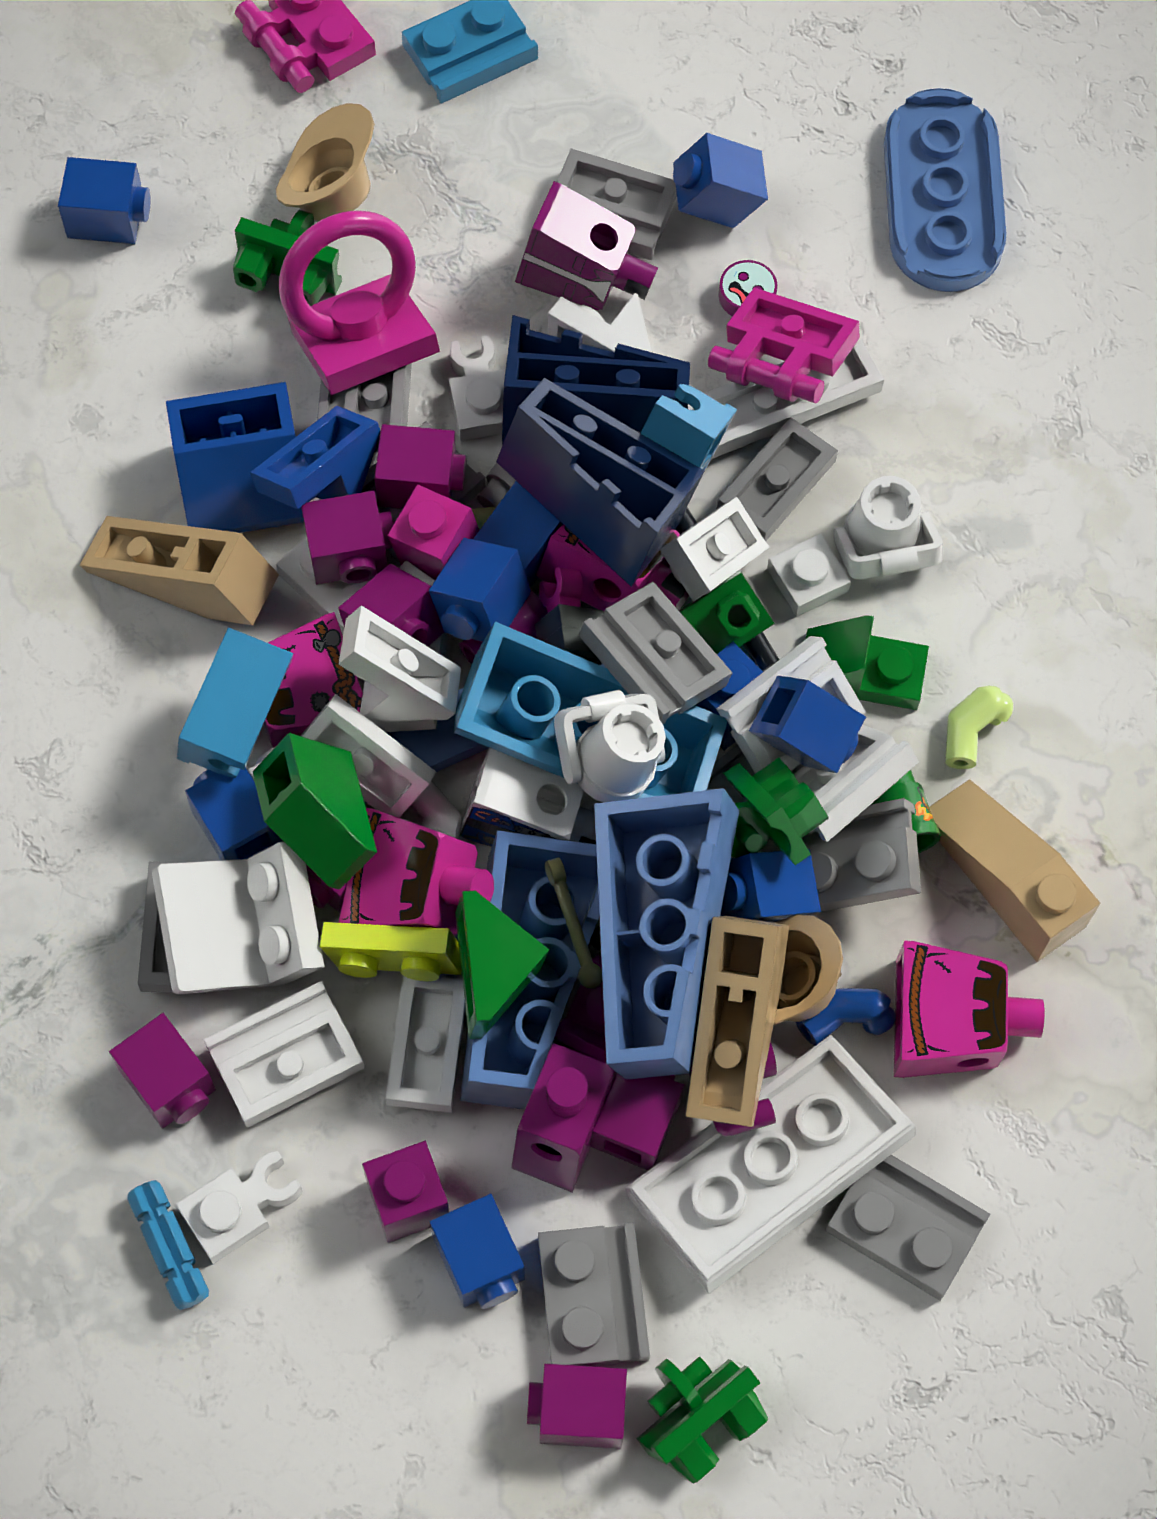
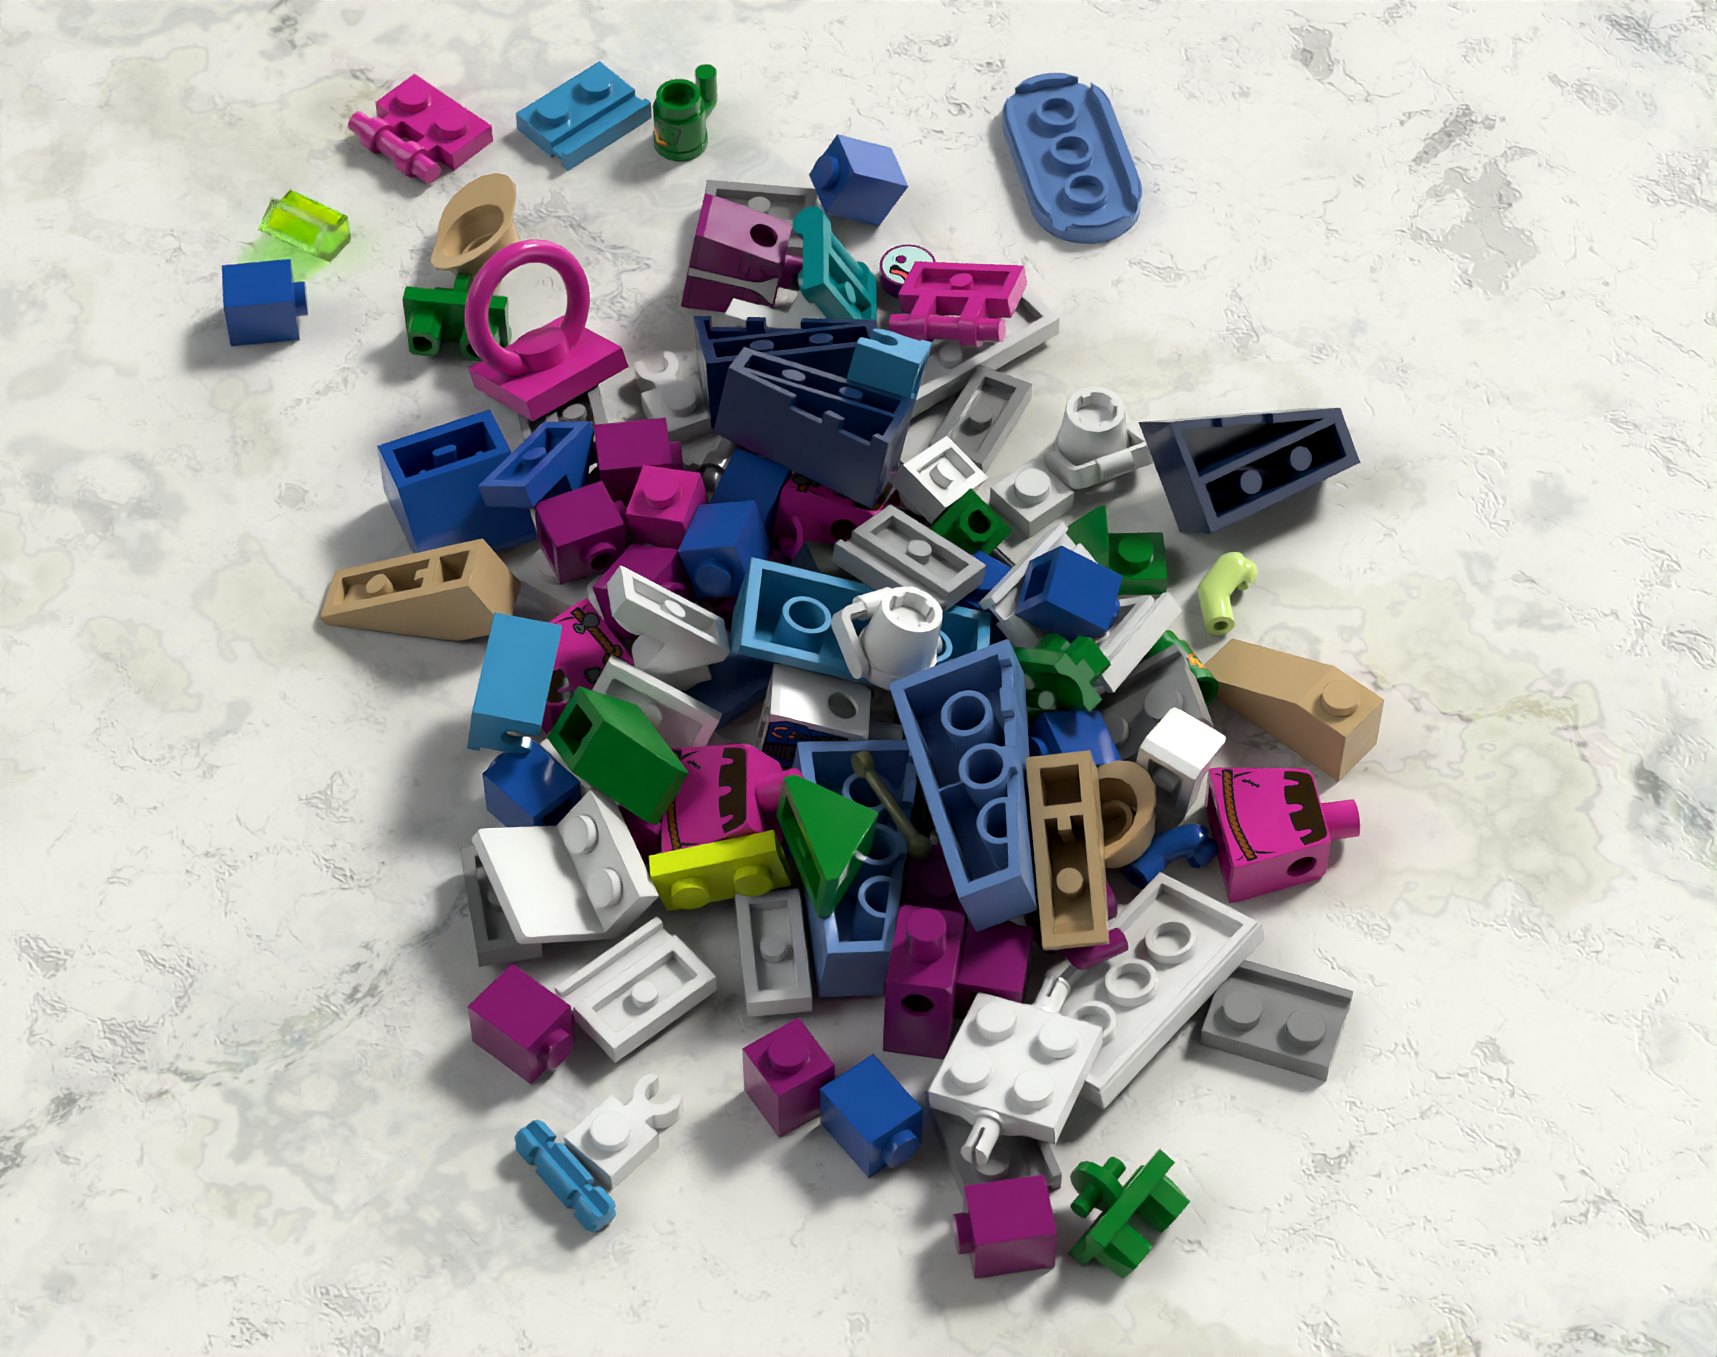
camera: 10 degrees left, 15 degrees down
(166, 121) = (307, 225): none -> clear neon green piece
(563, 67) = (682, 114): none -> green piece
(629, 1238) = (1015, 1068): none -> white plate
(667, 295) = (830, 273): none -> teal plate
(879, 922) = (1178, 758): none -> white slope
(1031, 589) = (1244, 462): none -> dark blue wedge

